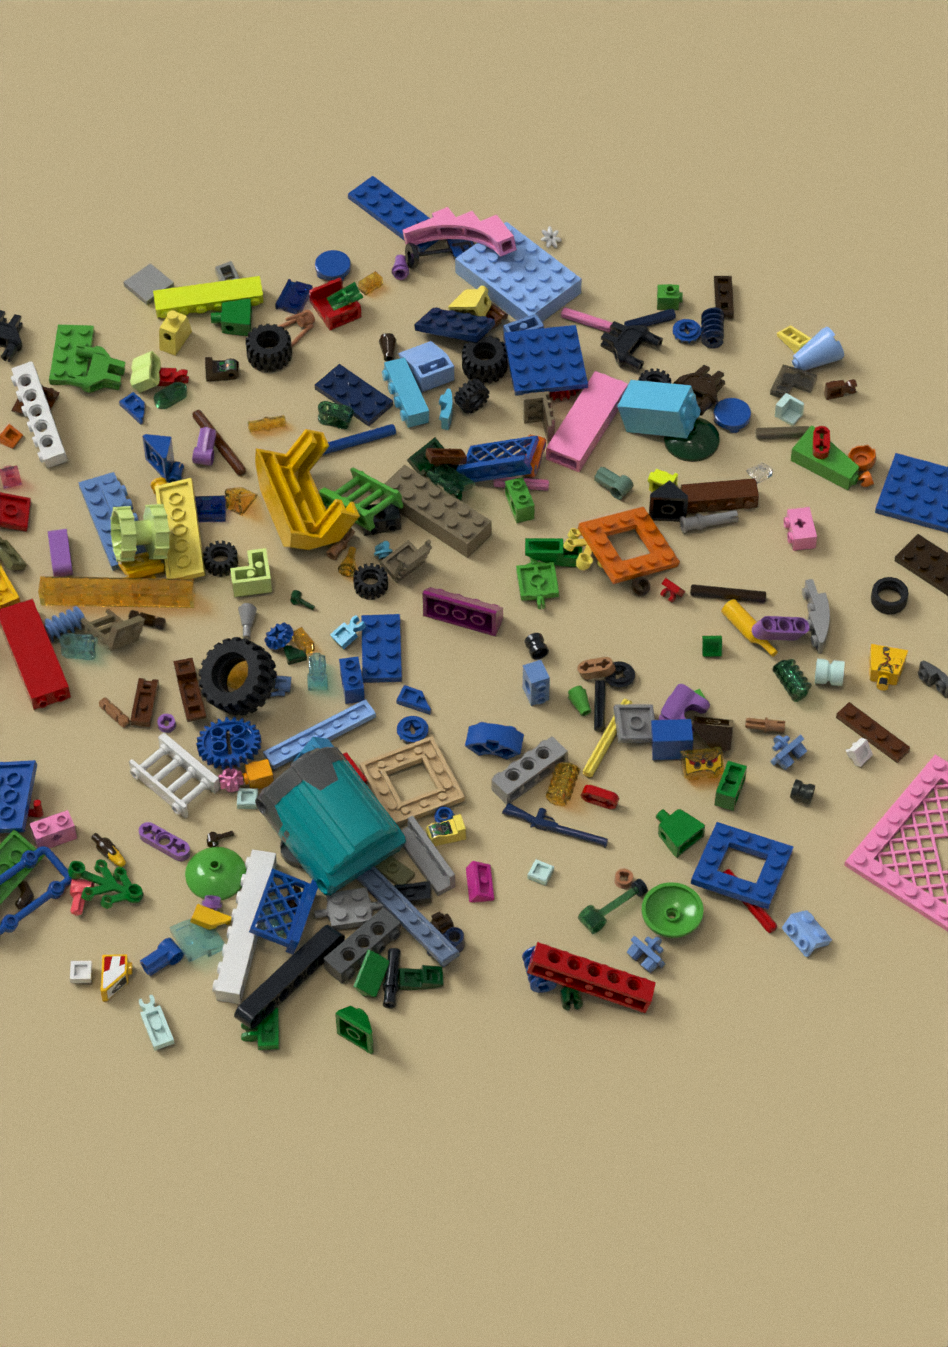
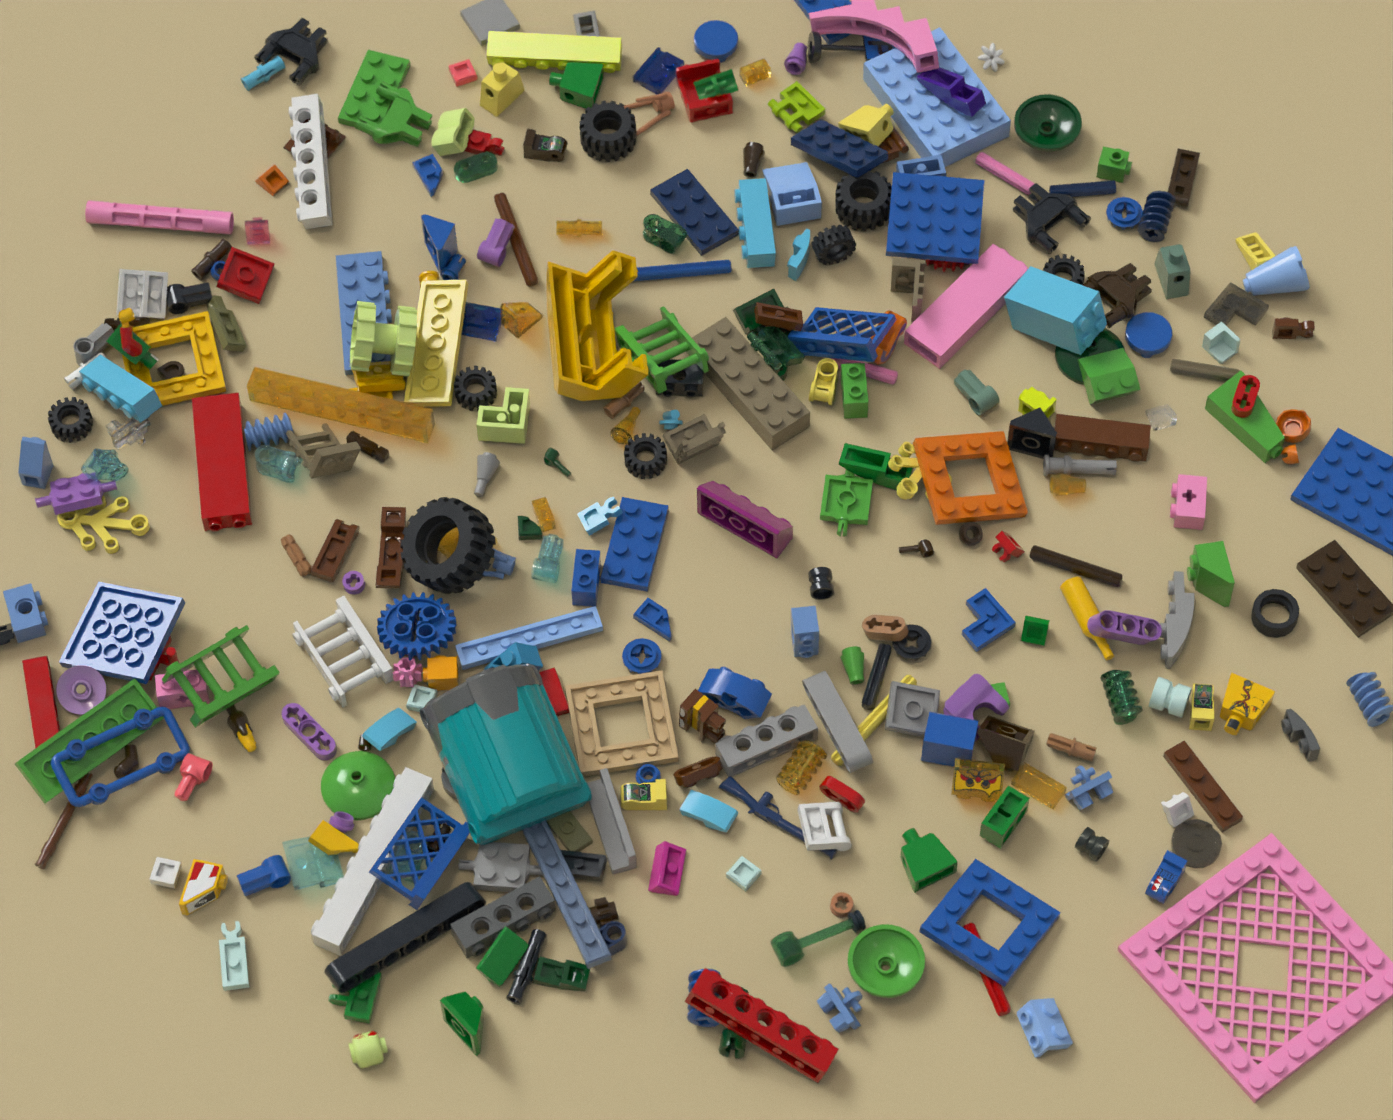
camera: 15 degrees right, 5 degrees up
(60, 553) = (289, 340): medium lavender beam -> none
(89, 830) = (222, 699): none -> bright green fence
(129, 891) = (225, 770): green plant -> none
(138, 327) = (462, 72): none -> coral tile
(229, 824) = (388, 728): none -> medium azure slope
(284, 1067) = (367, 1049): none -> yellowish green head
(285, 635) = (520, 506): blue gear -> none
(414, 299) = (801, 102): none -> lime plate
(475, 762) = (702, 715): none -> reddish brown hips
(487, 801) = (705, 768): none -> reddish brown plate
(494, 500) = (824, 386): none -> light yellow piece
(504, 832) = (709, 810): none -> medium azure slope
(532, 264) = (953, 90): none -> dark purple slope
(581, 743) = (837, 721): none -> light grey beam
(588, 824) = (816, 826): none -> white plate
(607, 603) = (923, 546): none -> dark brown hand
(609, 275) = (1048, 114): none -> dark green dish
(676, 646) = (991, 622): none -> blue plate
(703, 535) = (1064, 484): none -> clear yellow cone
(712, 449) = (1108, 375): none -> bright green slope
(737, 364) = (1169, 263): none -> sand green torso
(753, 759) = (1038, 785): none -> clear yellow tile
(834, 575) = (1211, 572): none -> bright green slope
(855, 675) = (1202, 707): none -> leg
(866, 802) = (1166, 877): none -> blue leg
(880, 775) = (1196, 843): none -> clear smoke tile

